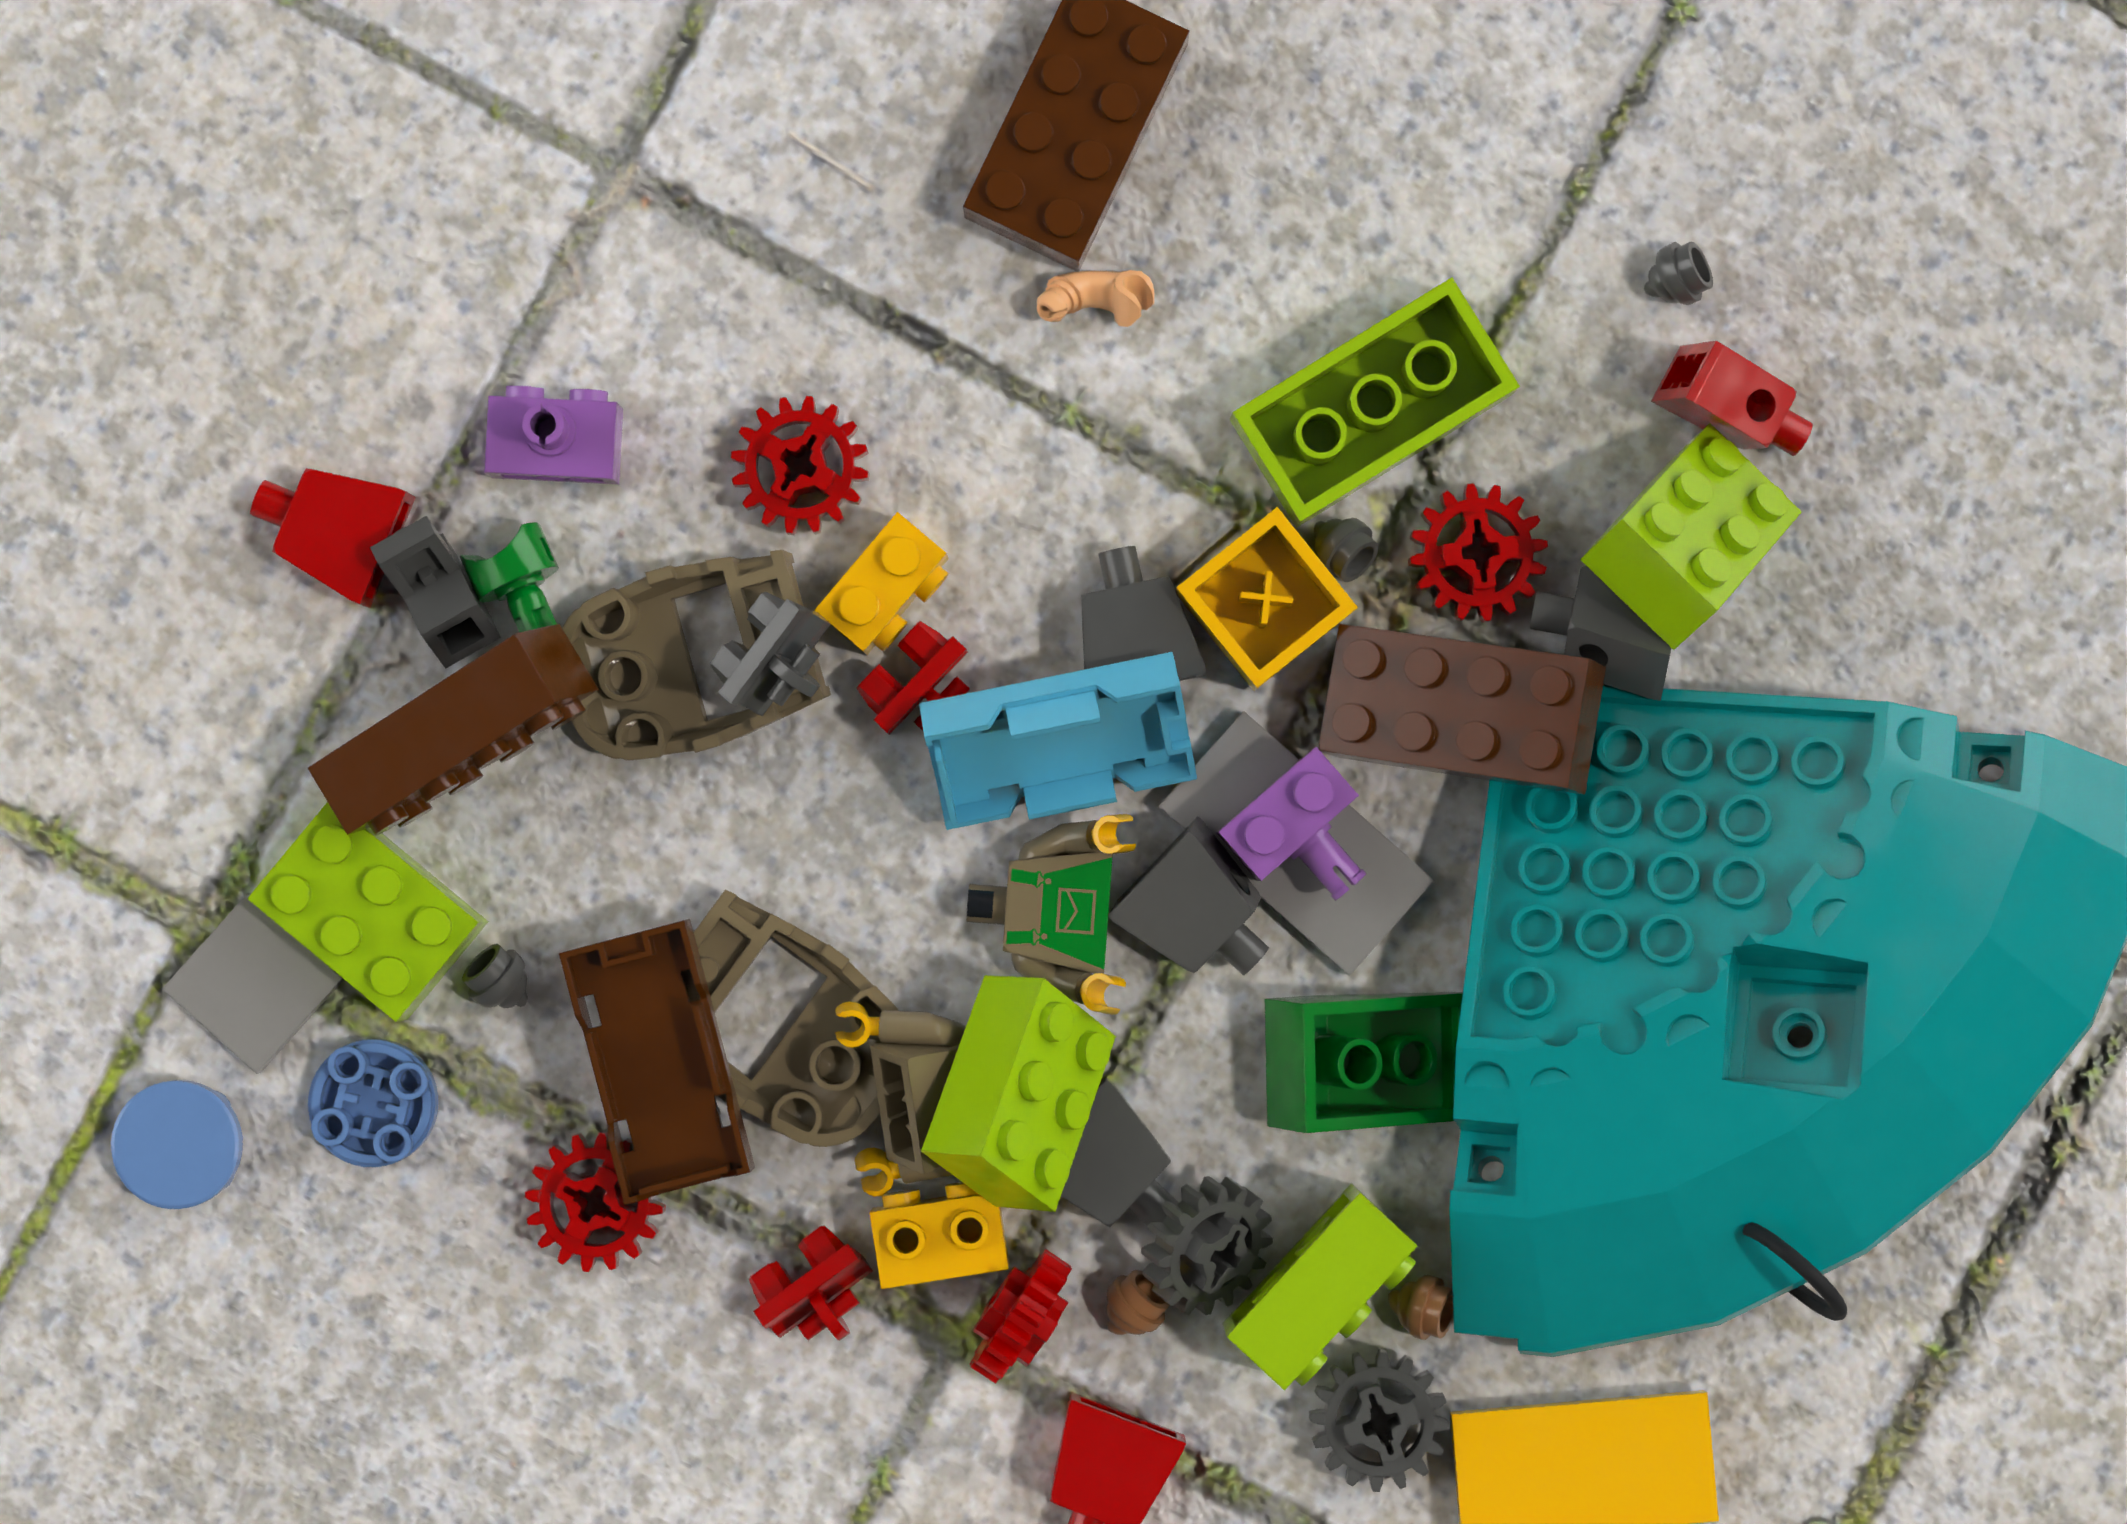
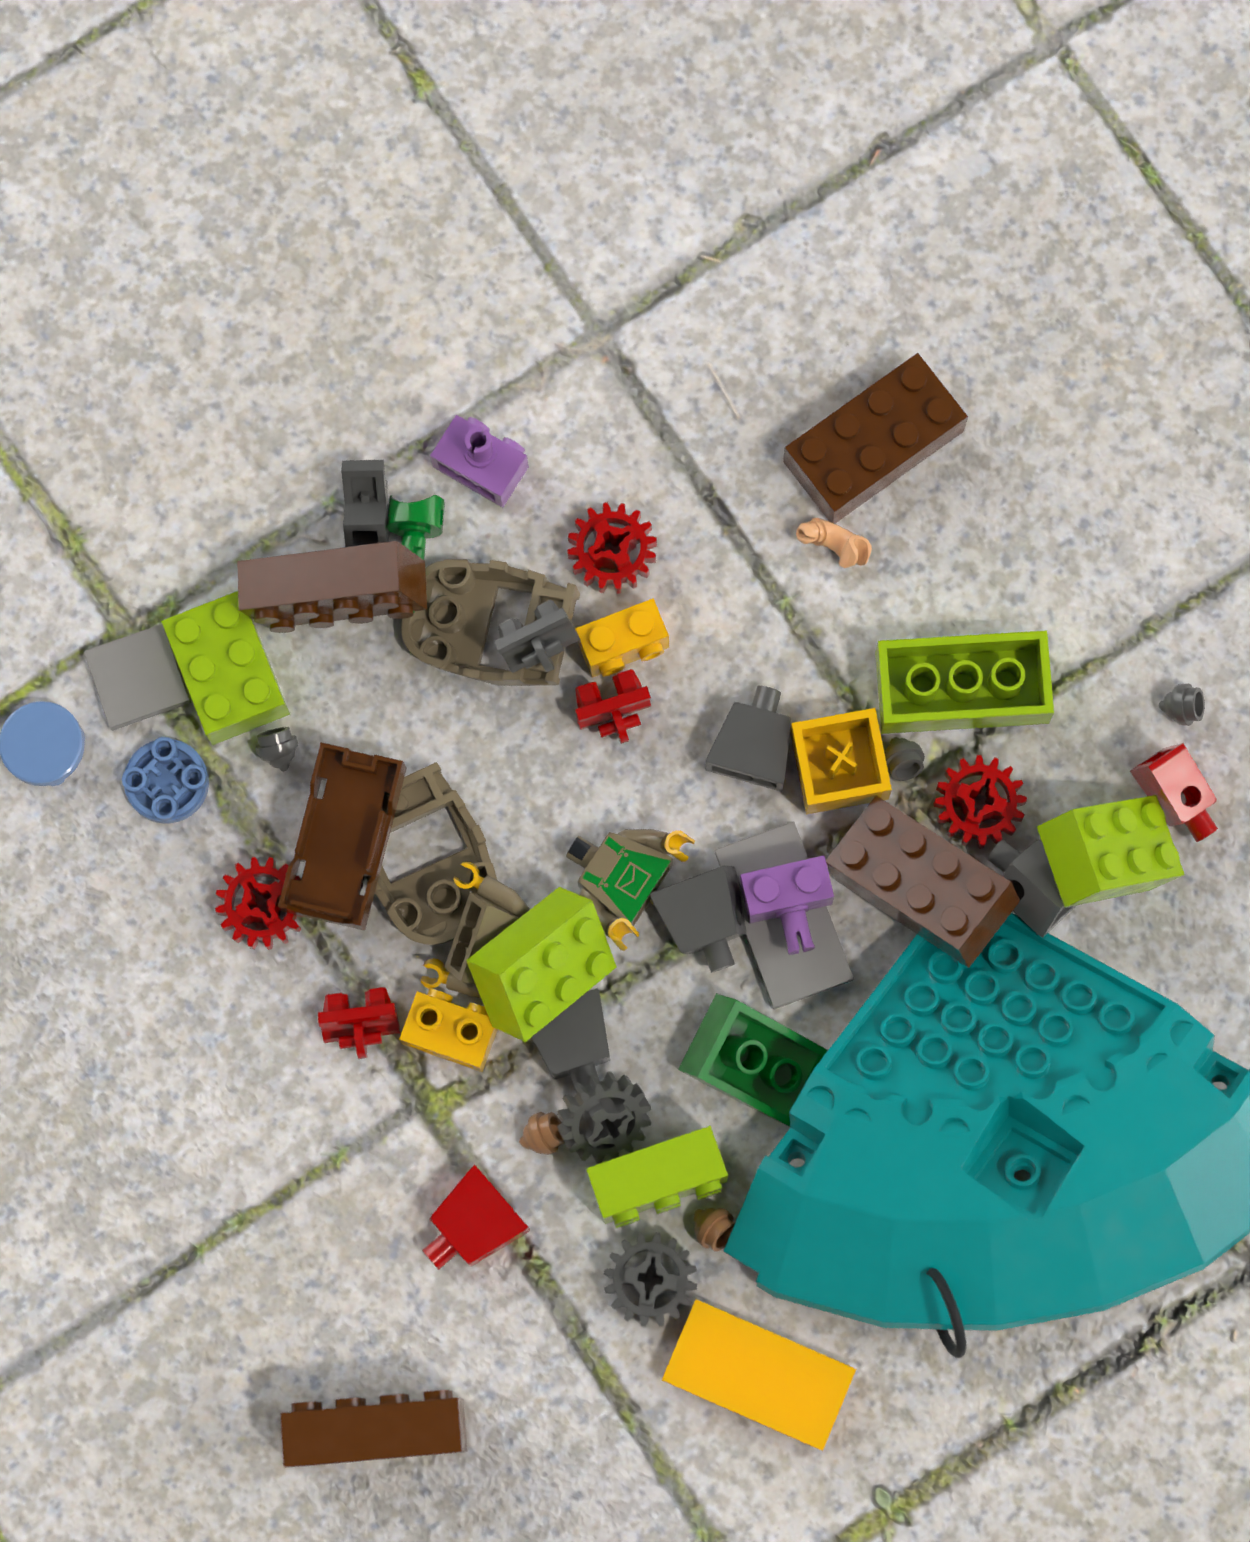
camera: 30 degrees right, 10 degrees down
(332, 526) = (326, 440): red torso -> none
(1020, 1316) = (471, 1098): red gear -> none
(1058, 741) = (676, 777): medium azure piece -> none

